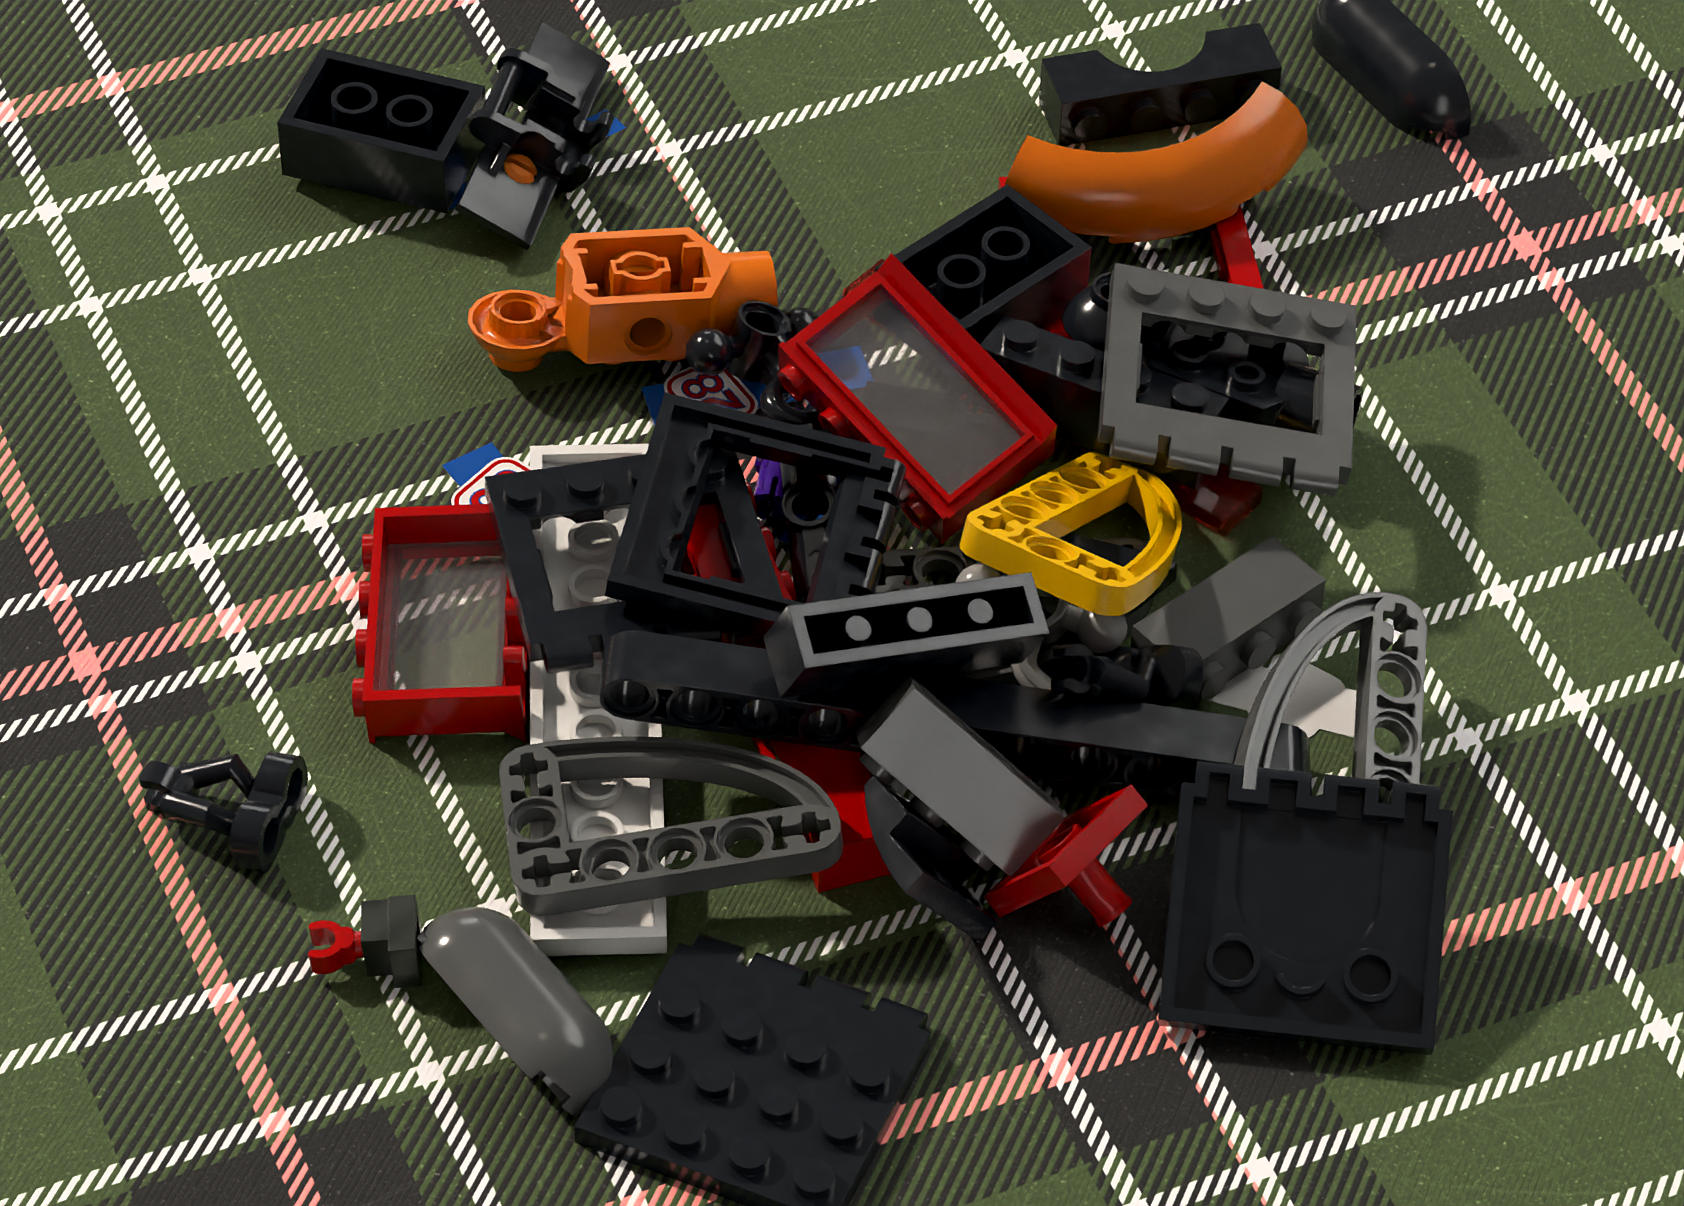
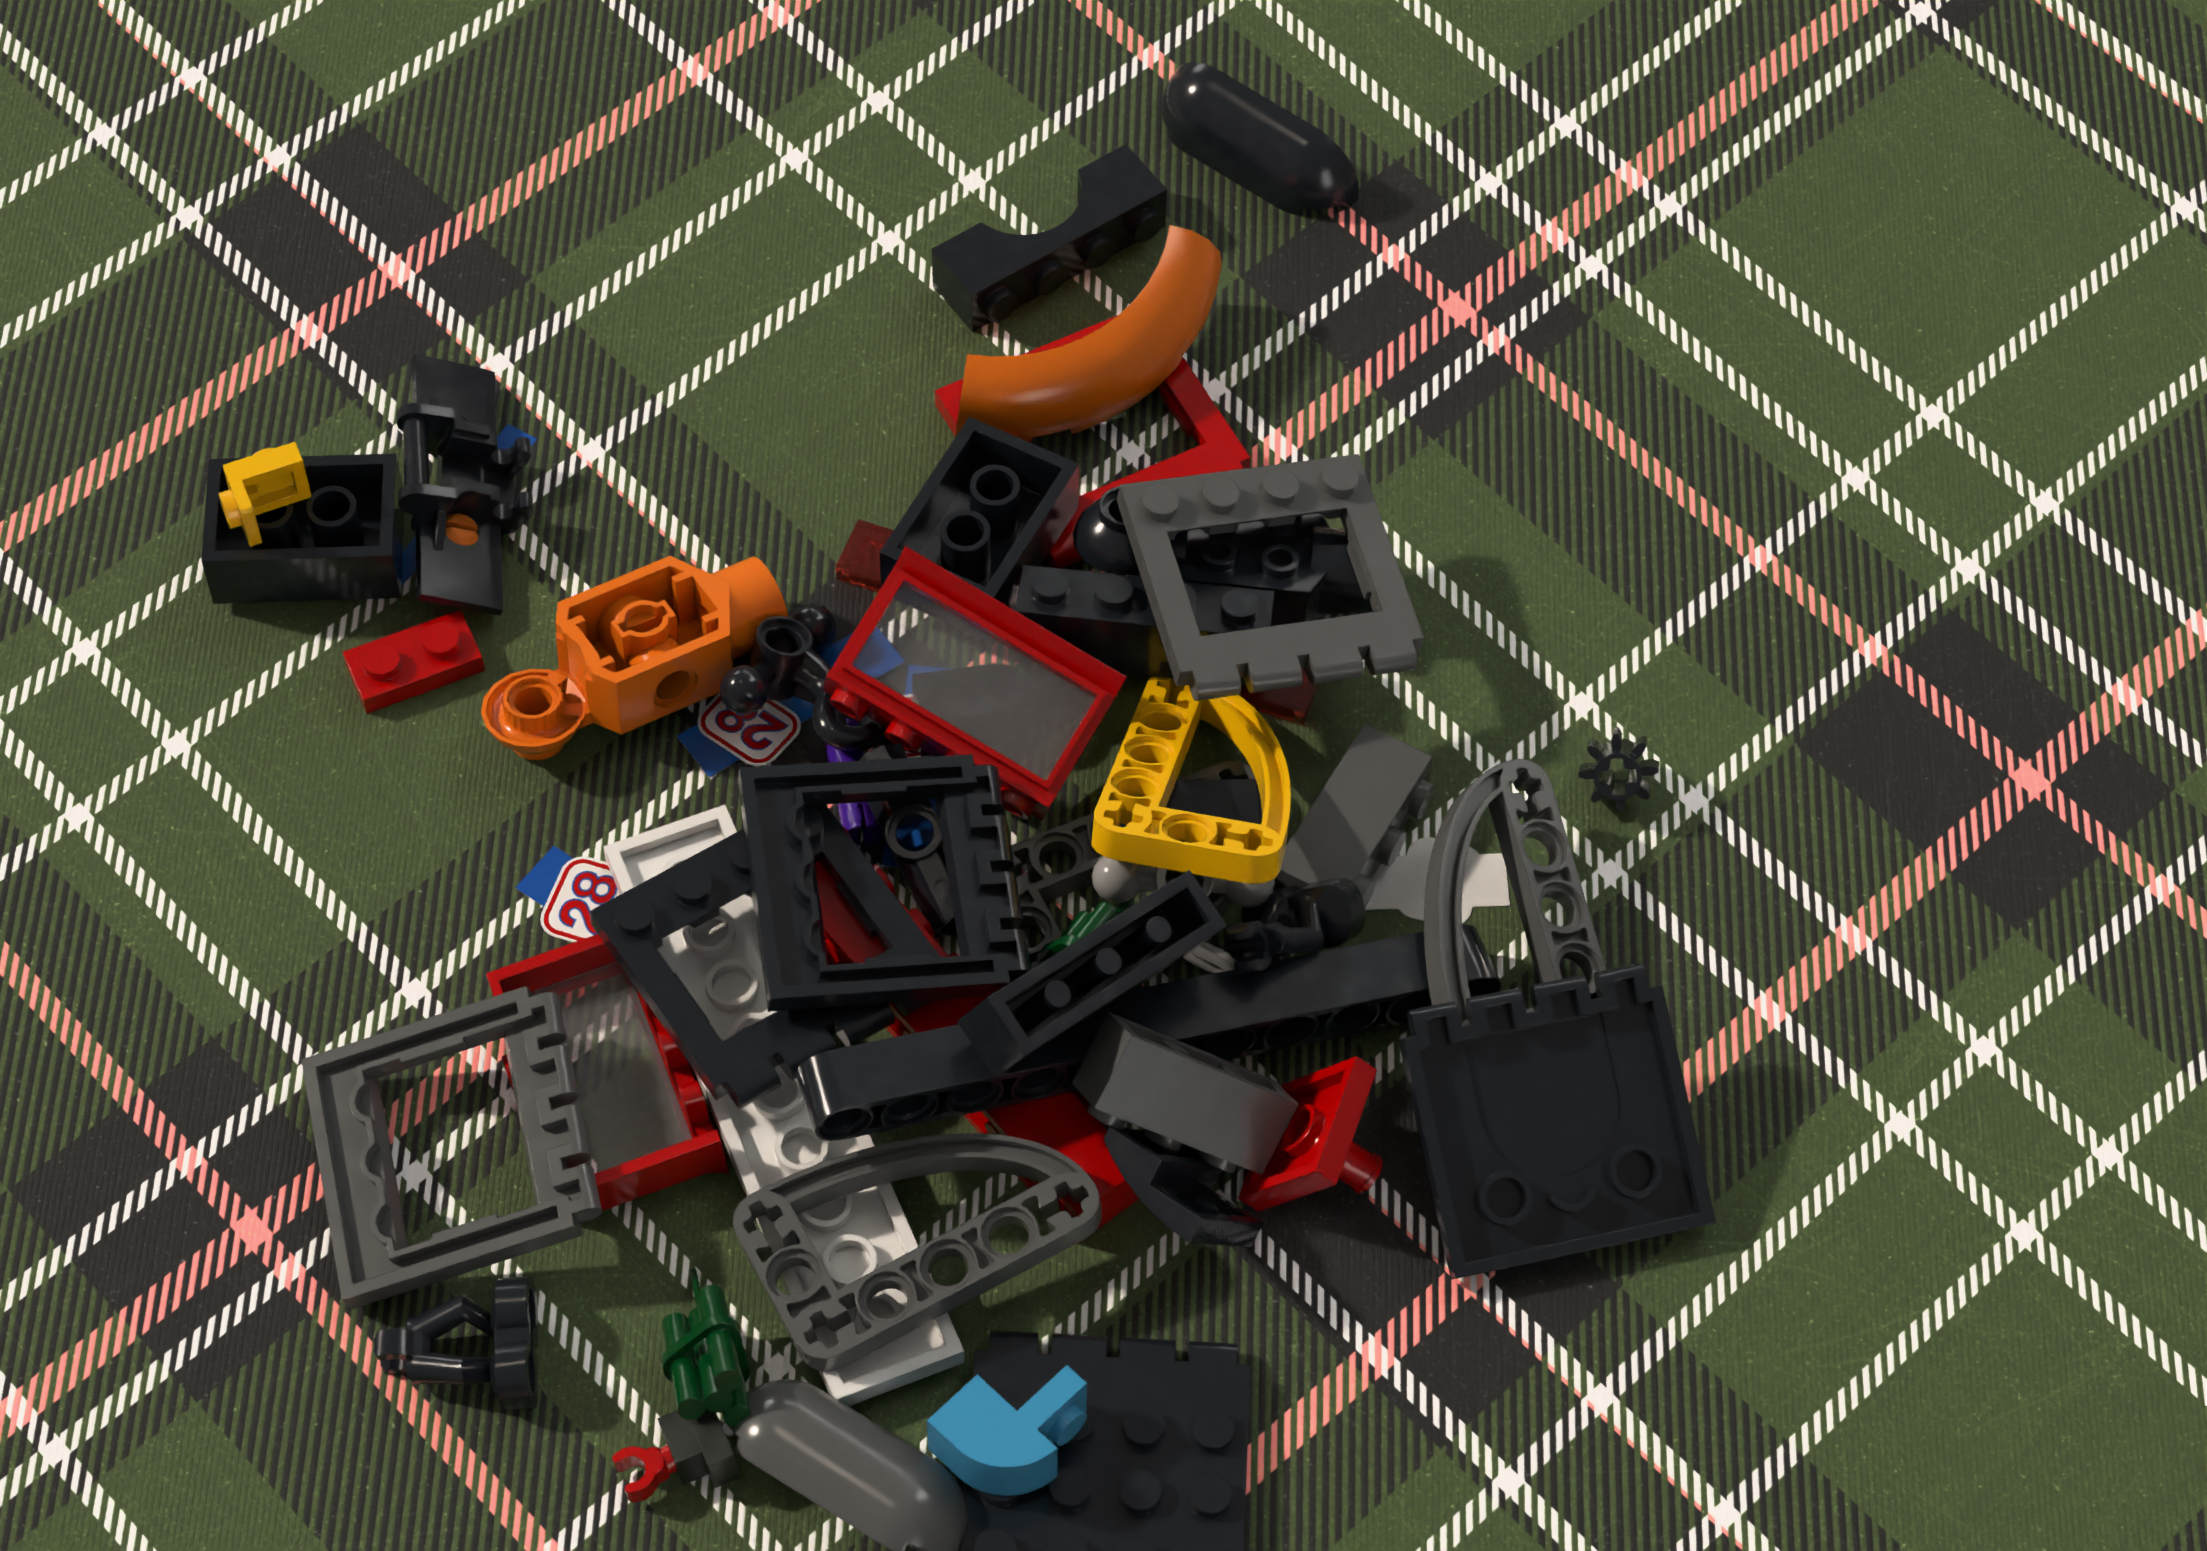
camera: 20 degrees left, 10 degrees up
(200, 614) = (359, 1164): none -> dark grey hinge
(353, 73) = (262, 484): none -> yellow bracket
(429, 869) = (706, 1358): none -> dark green piece
(434, 264) = (413, 661): none -> red plate
(667, 1017) = (1007, 1448): none -> dark azure brick
(1497, 660) = (1633, 760): none -> black gear

